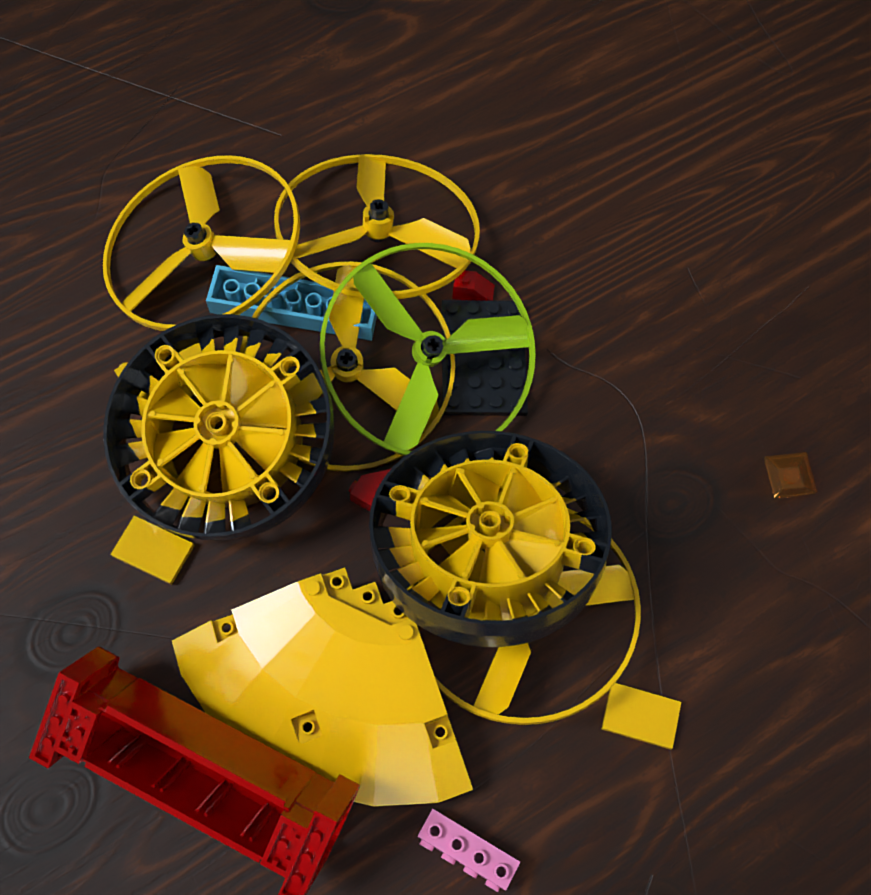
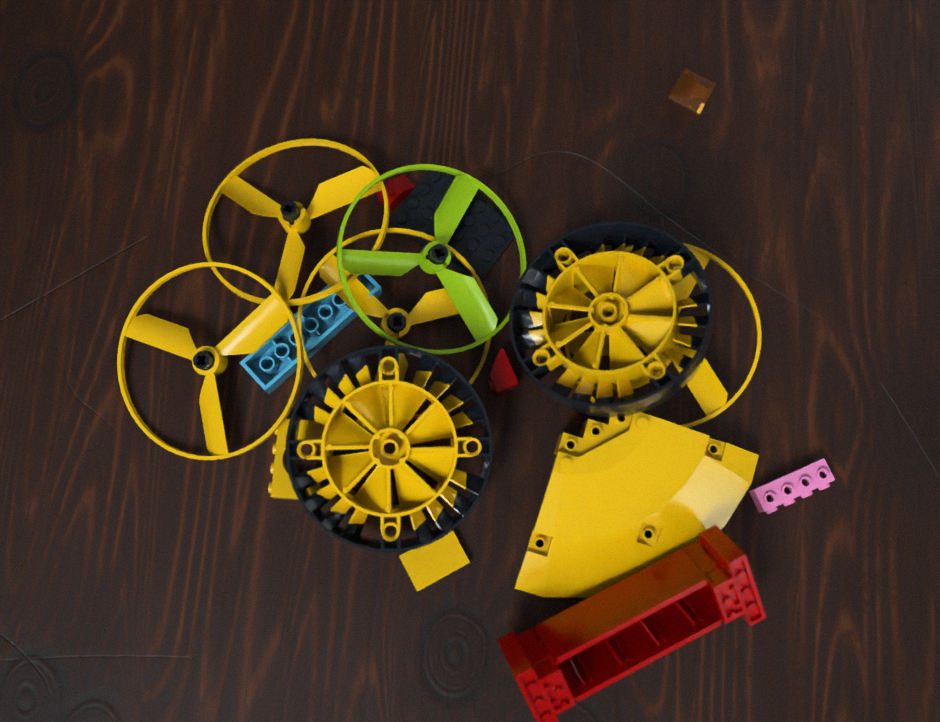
camera: 50 degrees left, 10 degrees up
(641, 715) = (783, 313): yellow tile -> none

